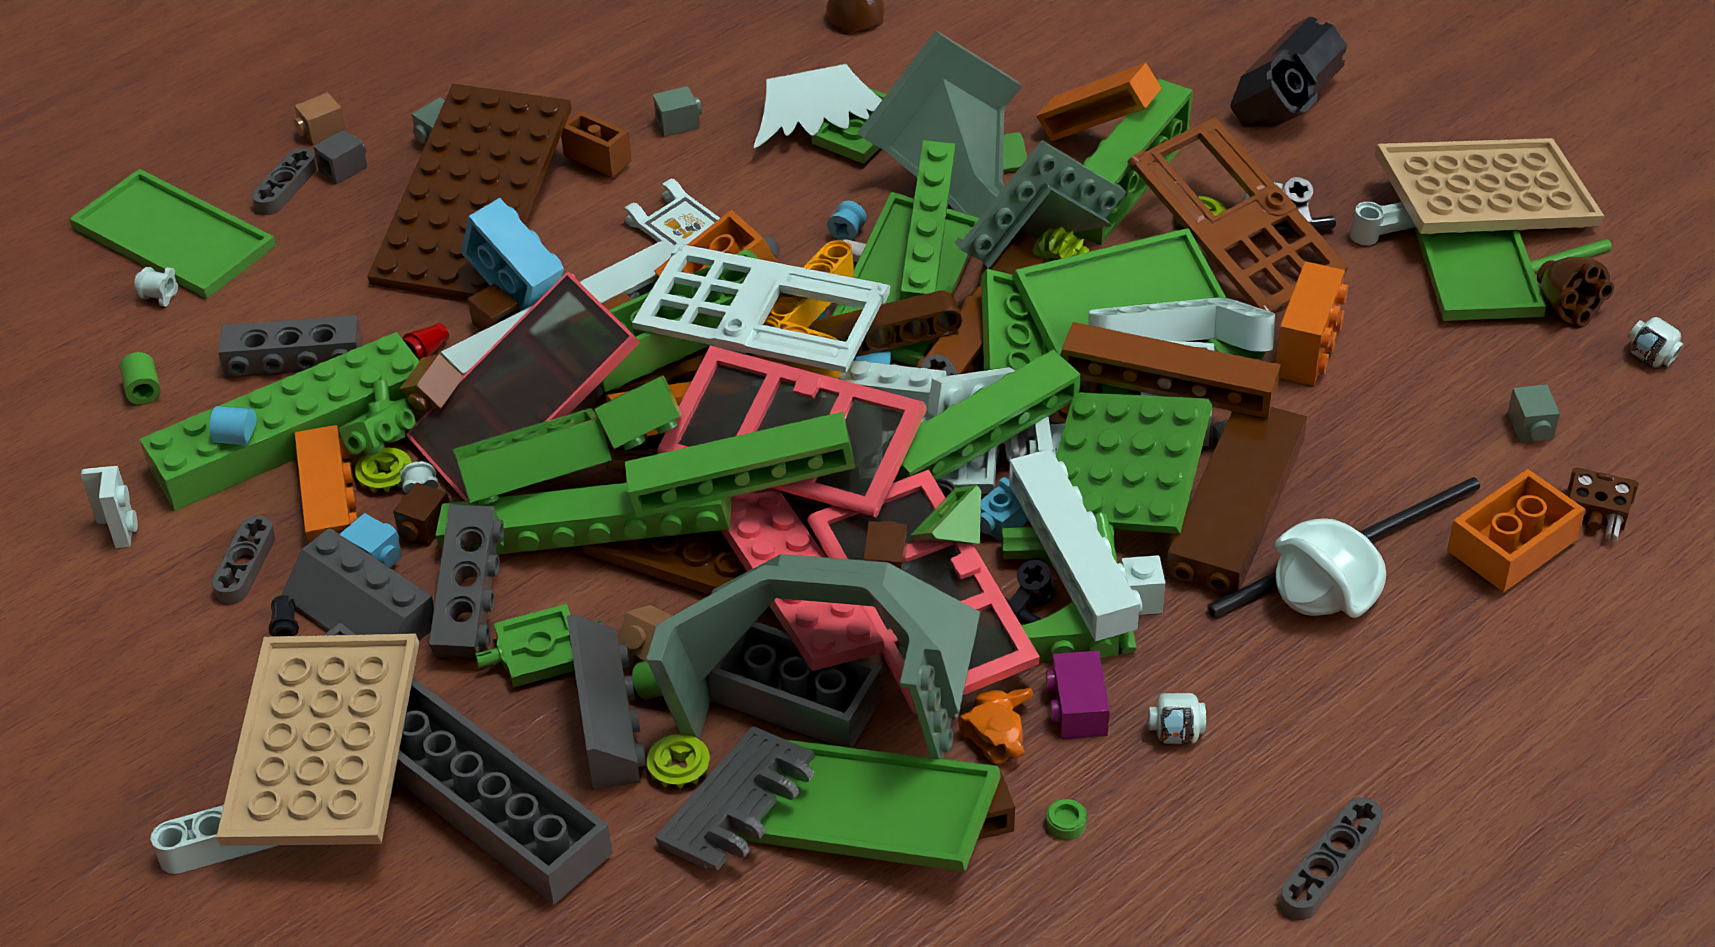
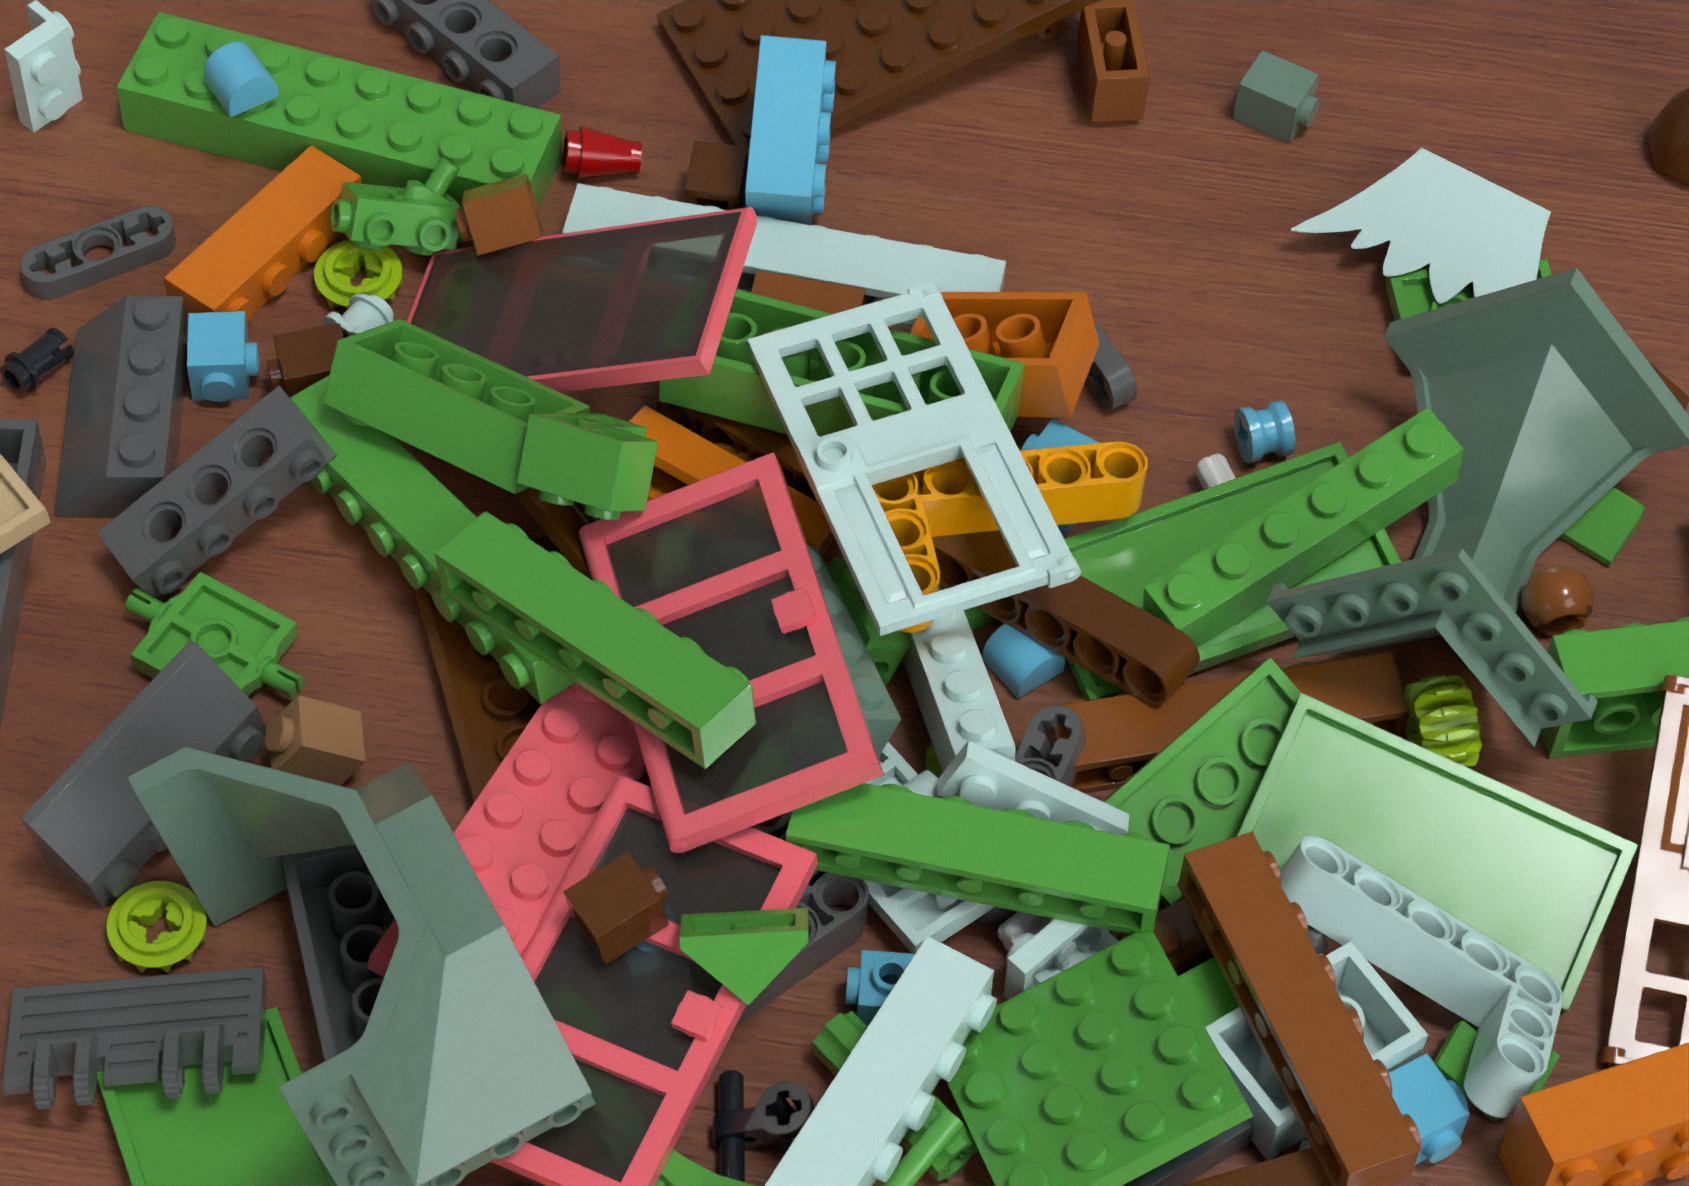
camera: 45 degrees right, 10 degrees up
(677, 221) = (1083, 250): light aqua flag -> none

